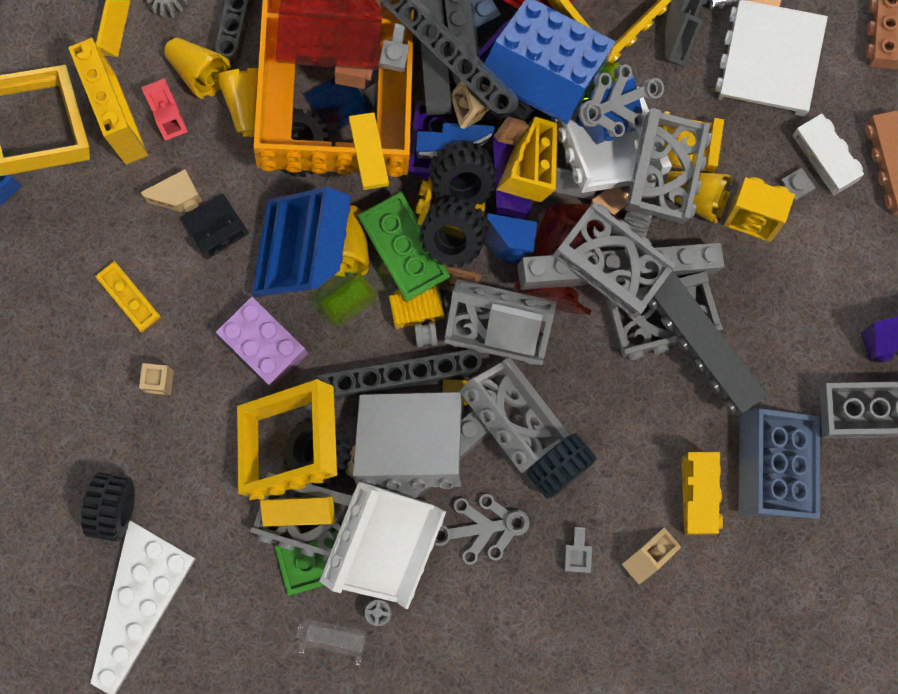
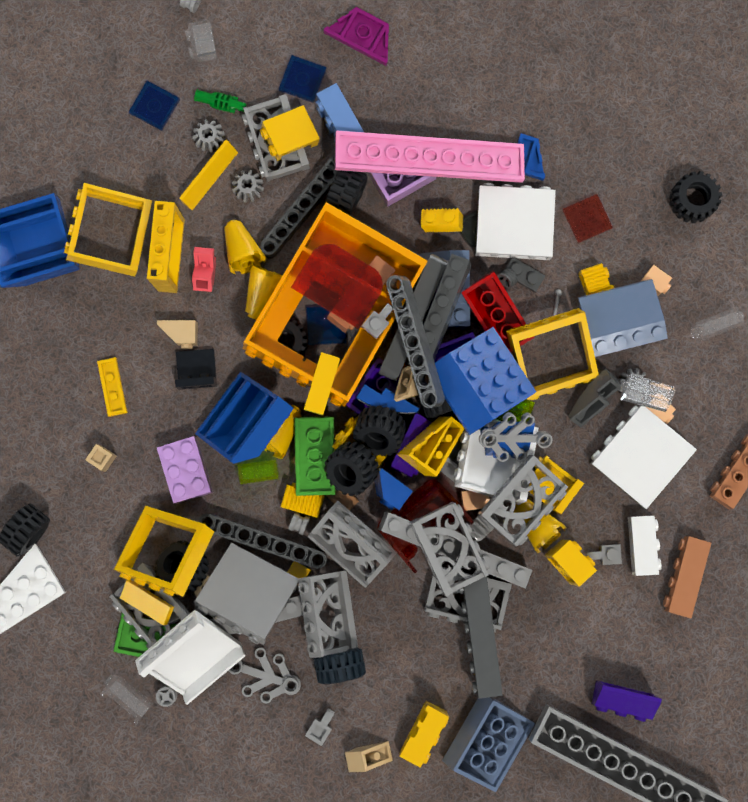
camera: 20 degrees right, 5 degrees up
(511, 131) = (429, 418): medium nougat tile -> none
(513, 329) = (356, 556): light grey tile -> none

